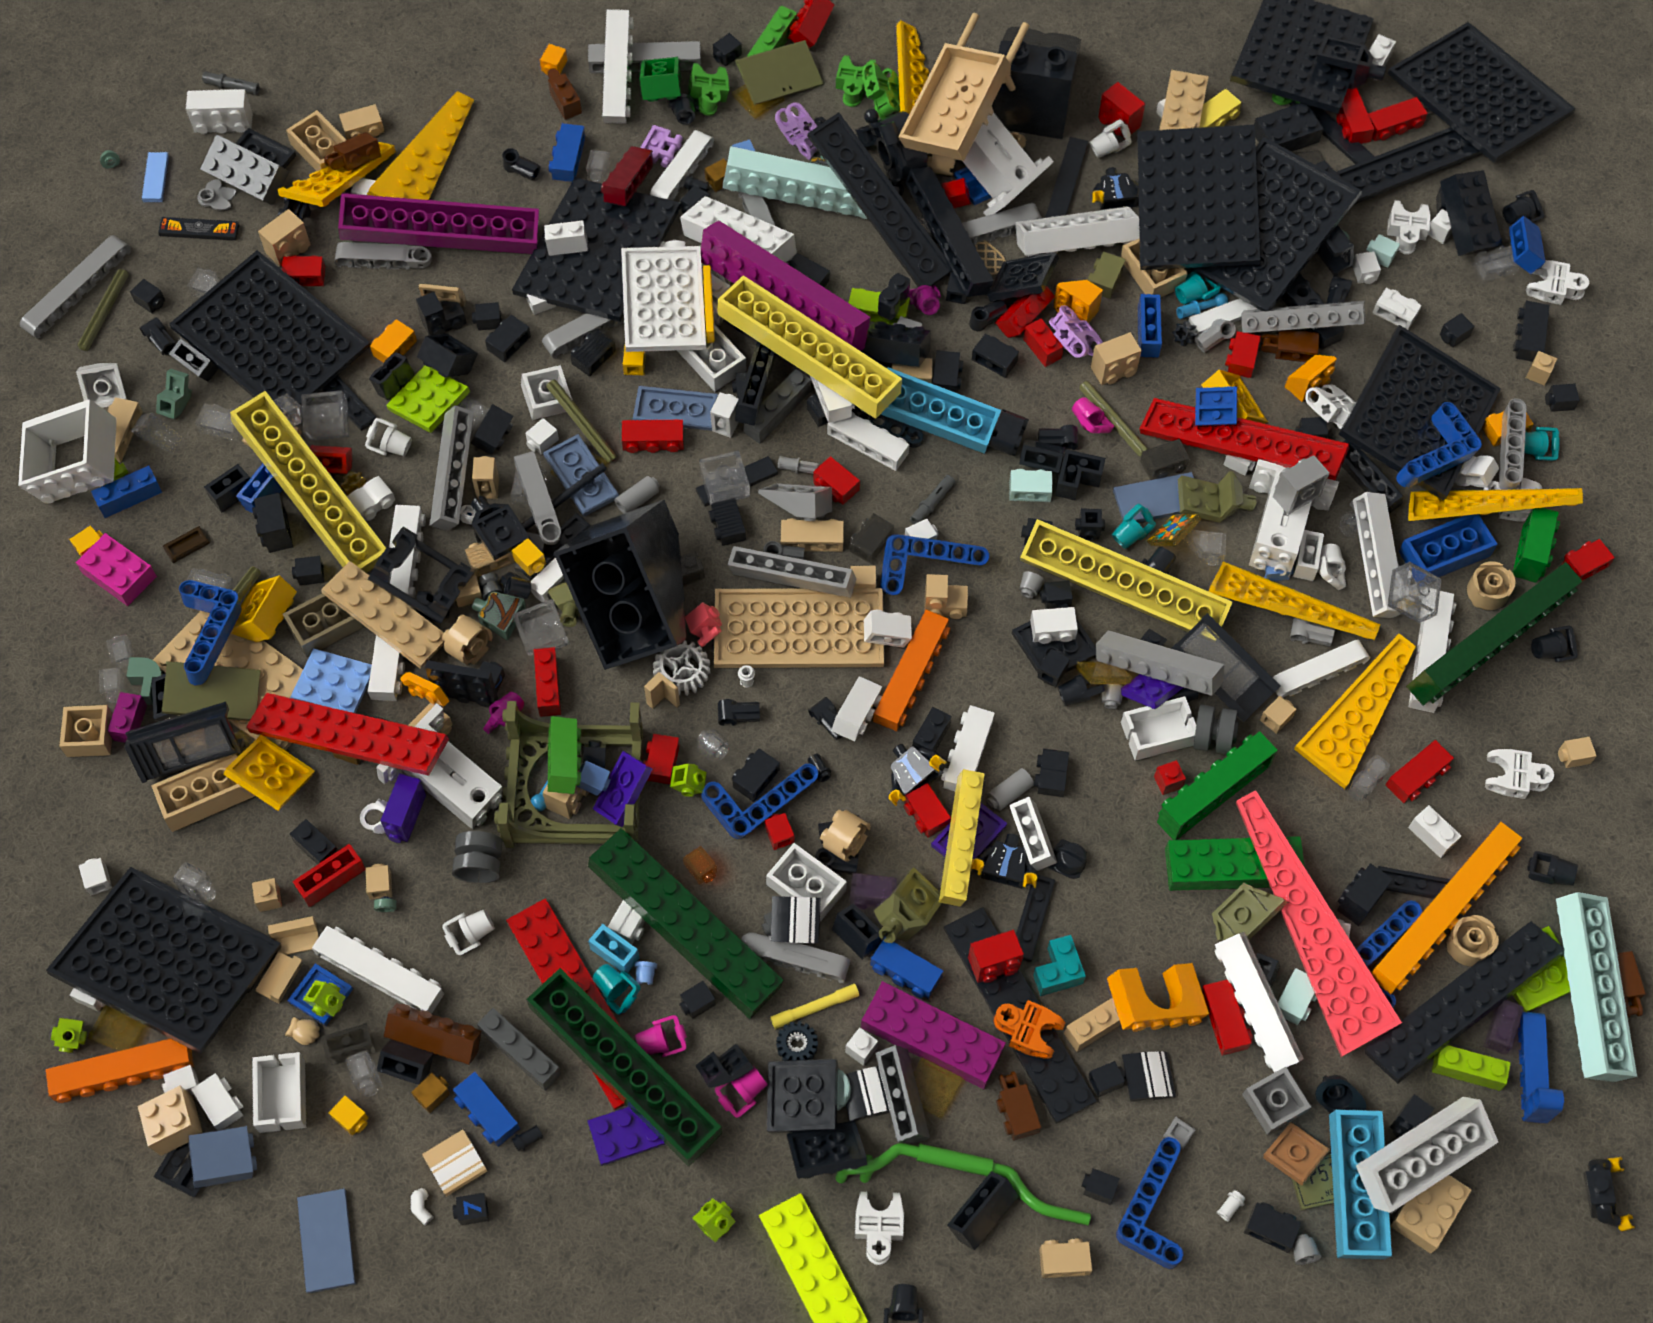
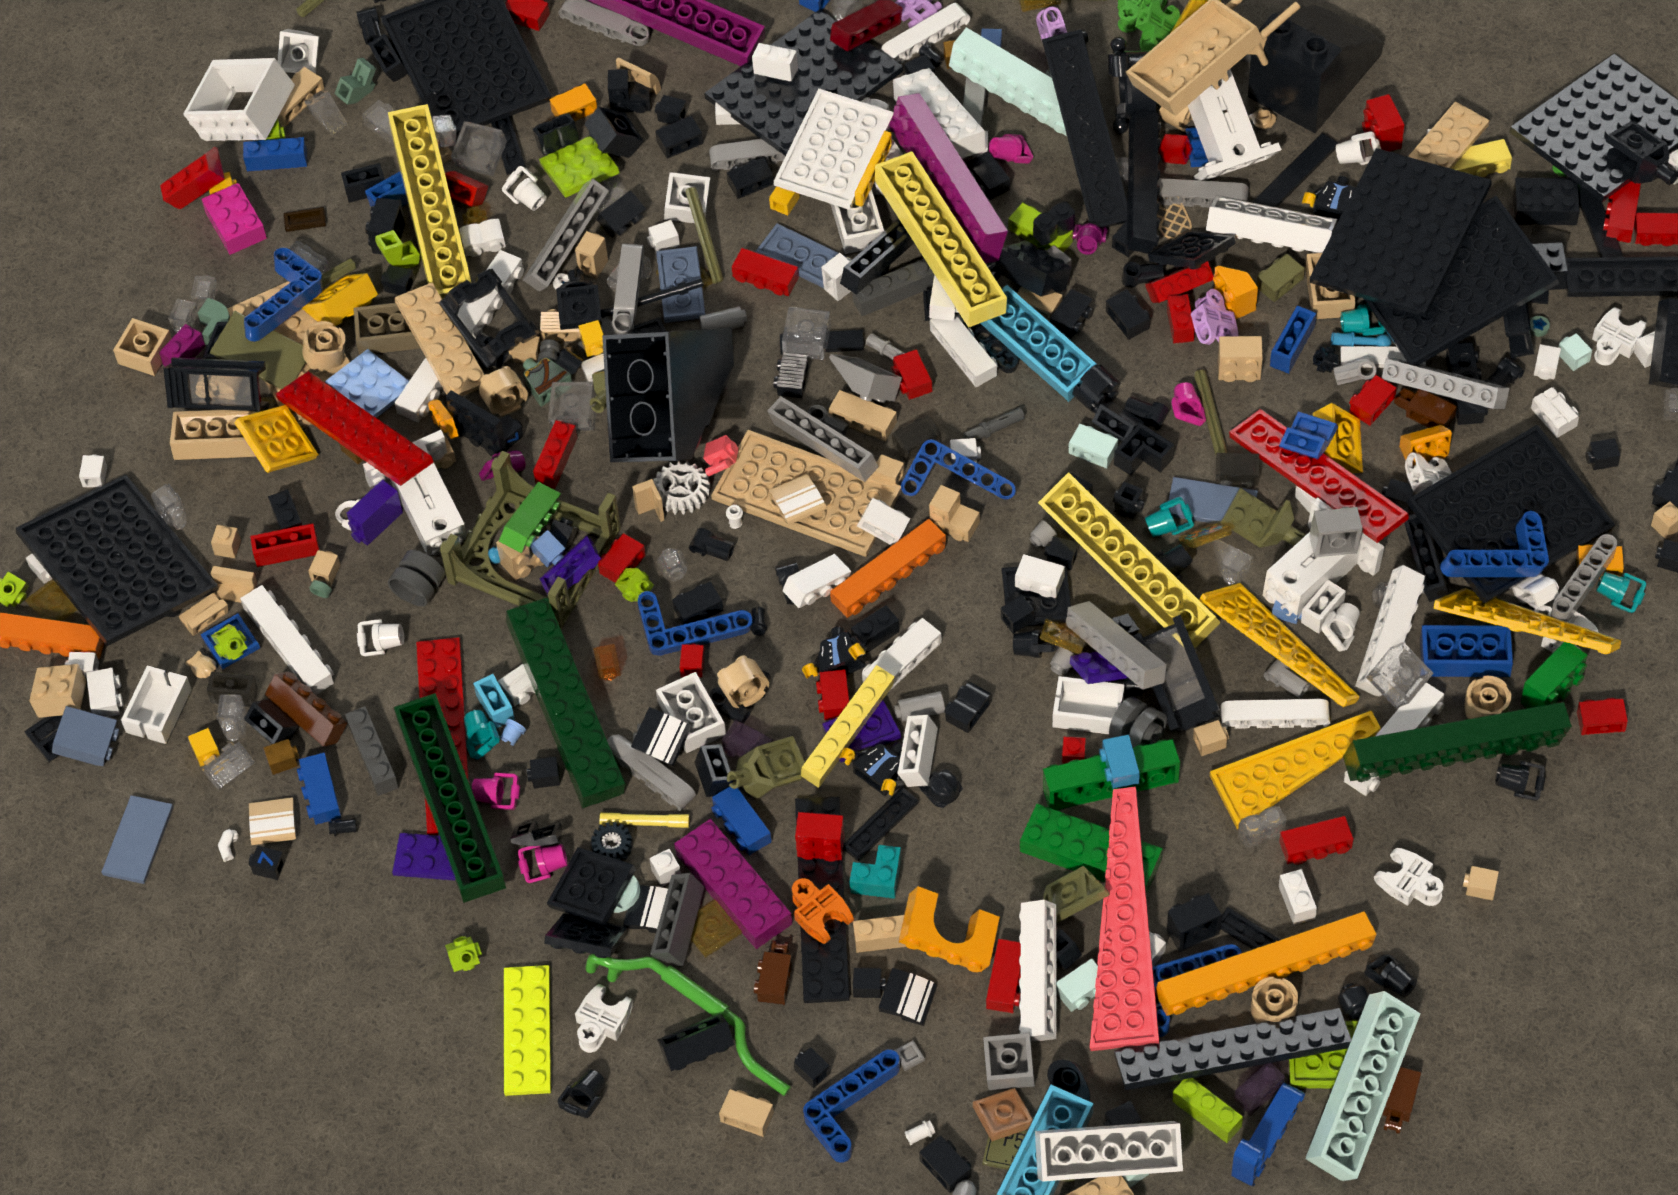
camera: 30 degrees right, 5 degrees down
(57, 546) = (193, 180): none -> red slope
(271, 662) = (323, 346): none -> tan brick
(297, 543) = (396, 252): none -> lime brick
(382, 1124) = (228, 765): none -> clear brick
(797, 637) = (797, 499): none -> slope
(814, 243) = (1010, 148): none -> dark pink piece
(1230, 772) = (1120, 762): none -> dark azure piece
(1536, 907) = (1353, 1000): none -> black head

